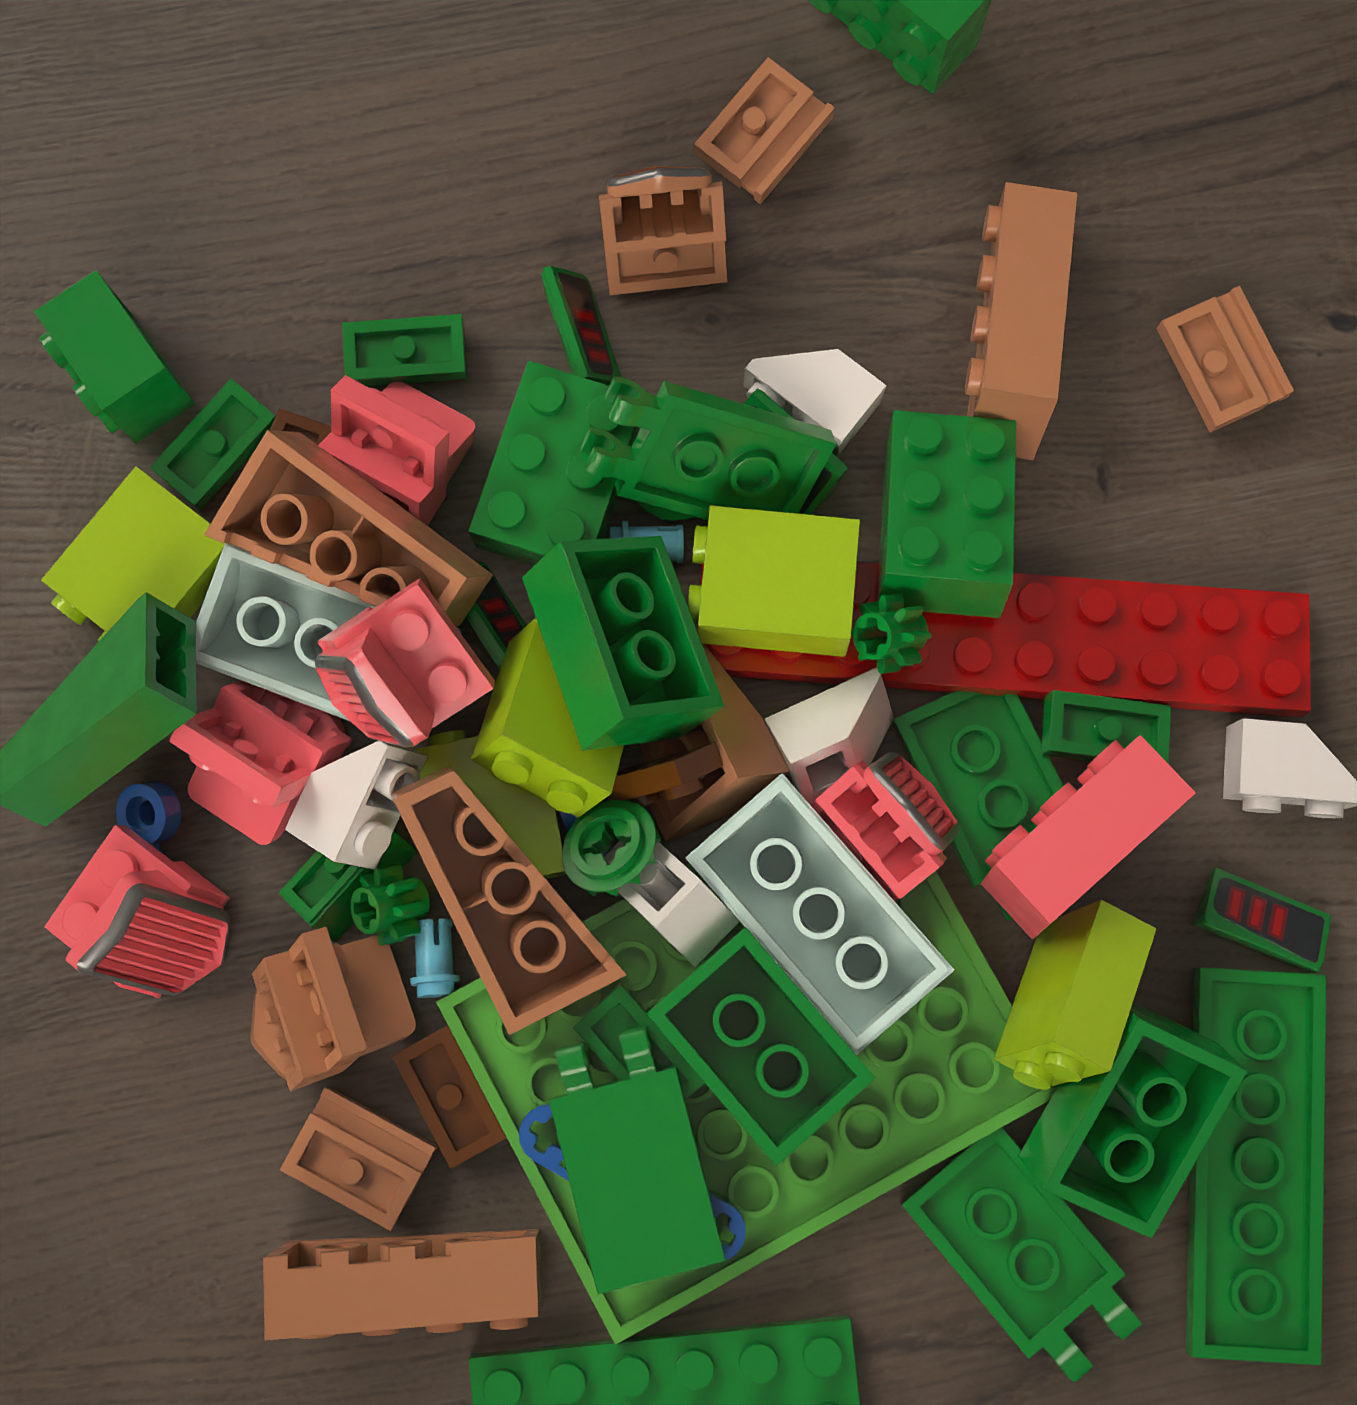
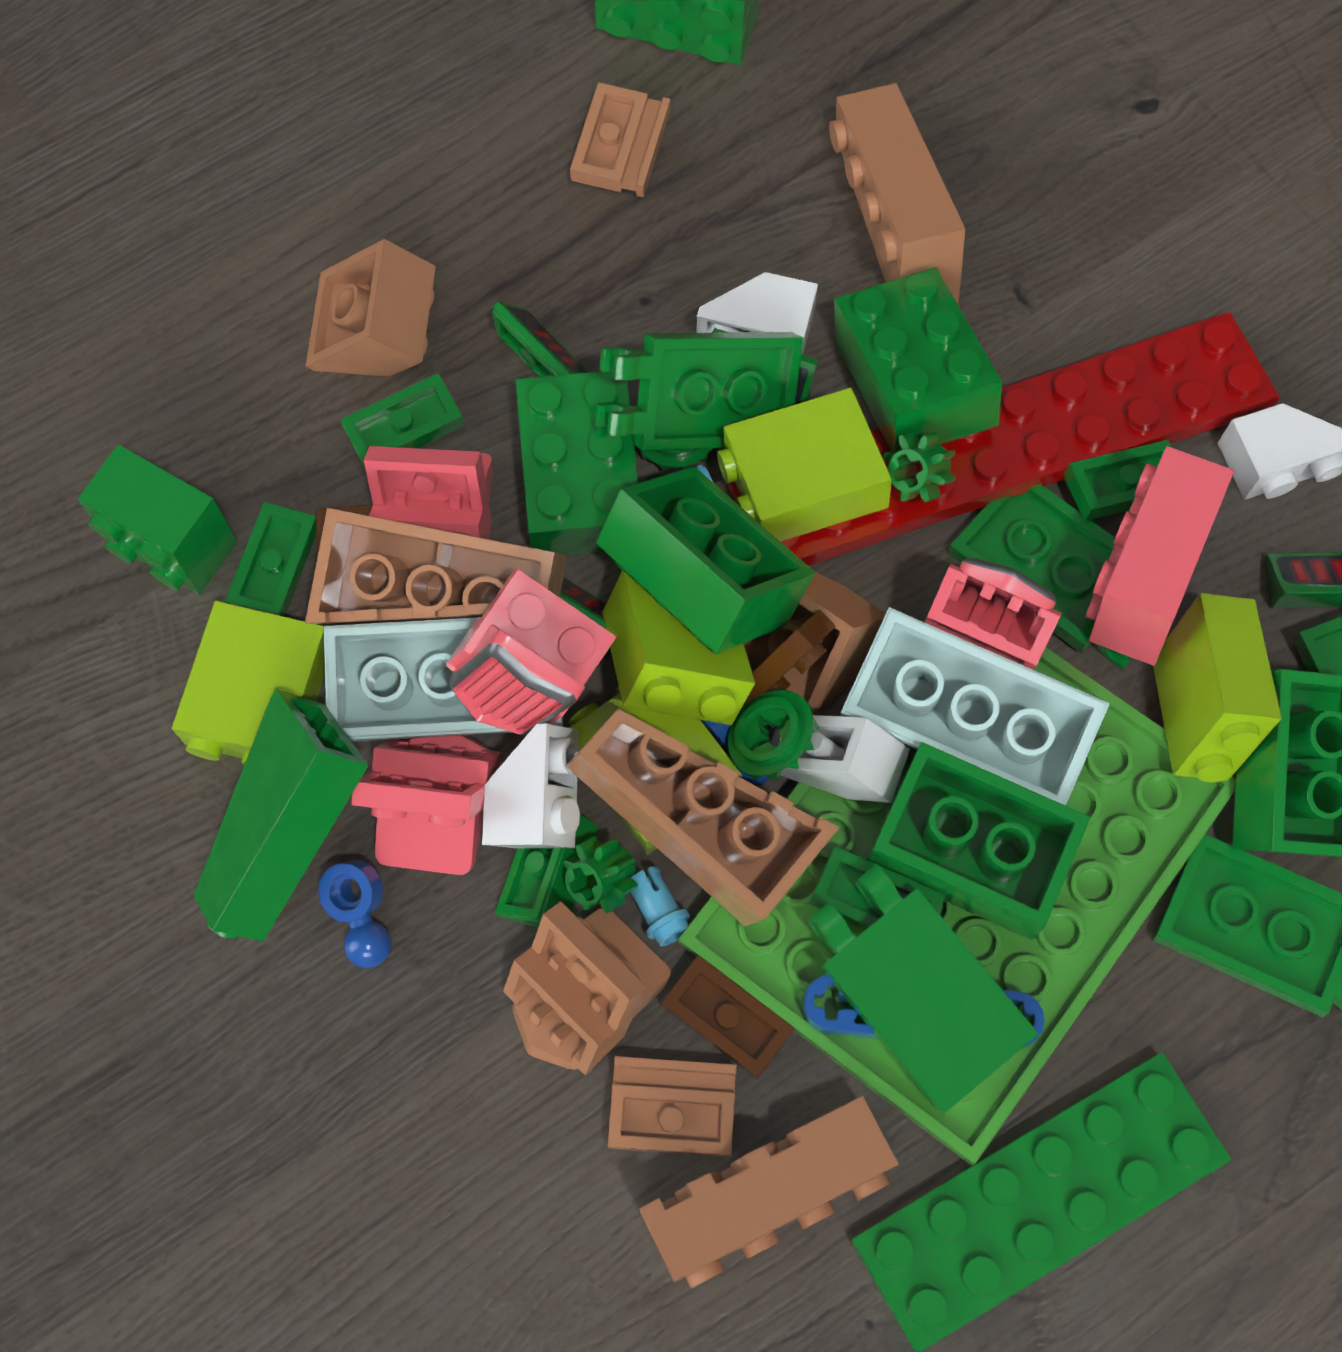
camera: 25 degrees left, 10 degrees down
(142, 919) = (387, 981): coral piece -> none
(425, 219) = (372, 313): none -> nougat slope
(663, 229) = (578, 237): nougat piece -> none
(832, 732) = (905, 568): white slope -> none
(1224, 359) = (1071, 165): nougat plate -> none

